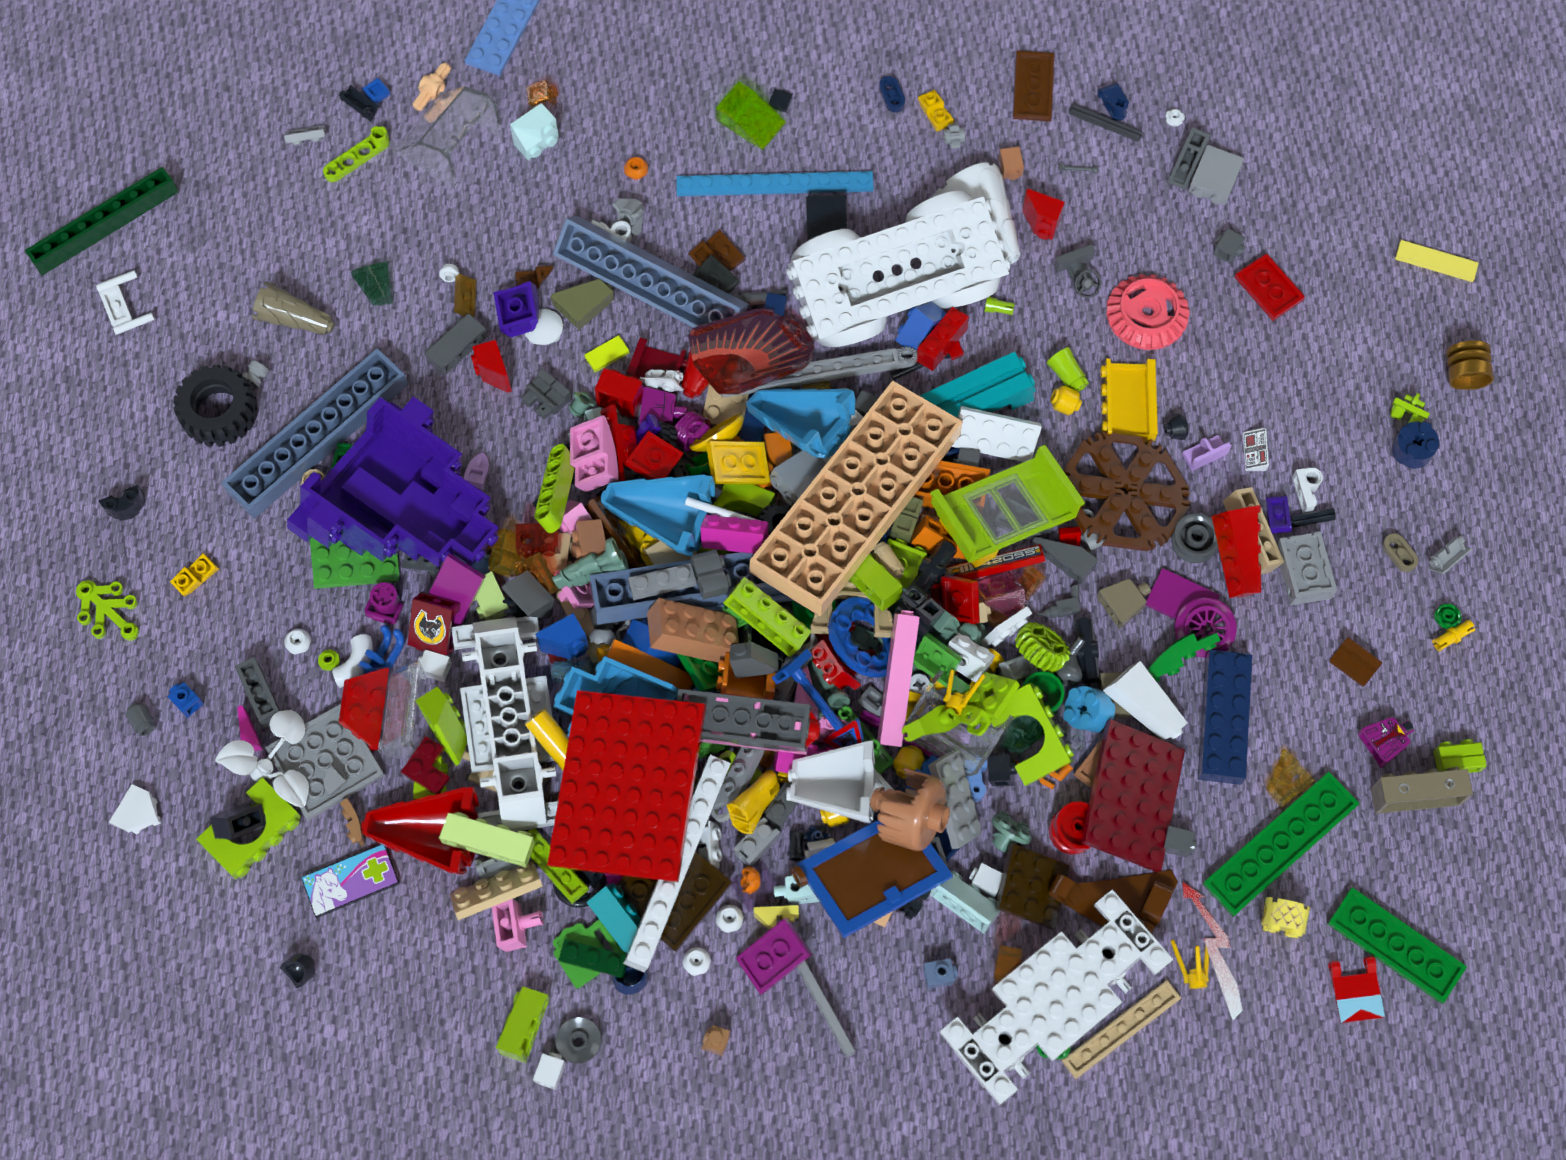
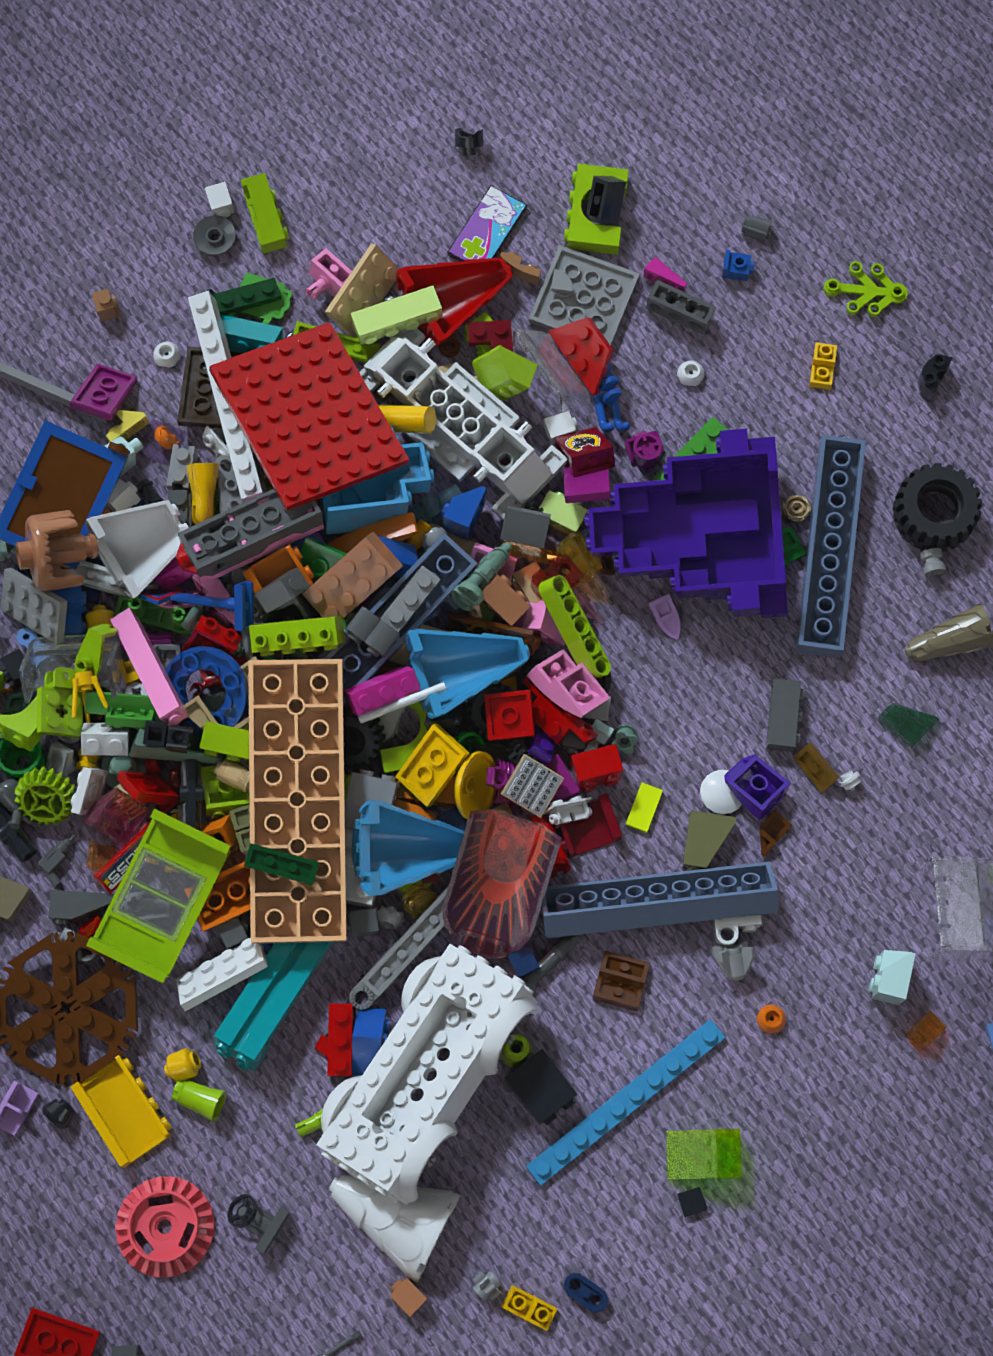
camera: 145 degrees right, 5 degrees up
(136, 811) = (697, 164): white slope -> none
(239, 759) = (588, 253): white plant -> none
(330, 665) = (651, 381): lime plate -> none
(350, 668) = (627, 372): white cylinder -> none
(489, 364) = (730, 711): red slope -> none
(548, 393) = (674, 726): dark grey hips -> none
(676, 405) = (532, 785): none -> light grey tile
(717, 275) = (603, 950): pearl dark grey tile -> none
(729, 925) = (167, 408): white plate -> none
(903, 450) = (281, 864): none -> dark green plate
(1042, 213) = (331, 1251): red slope -> none

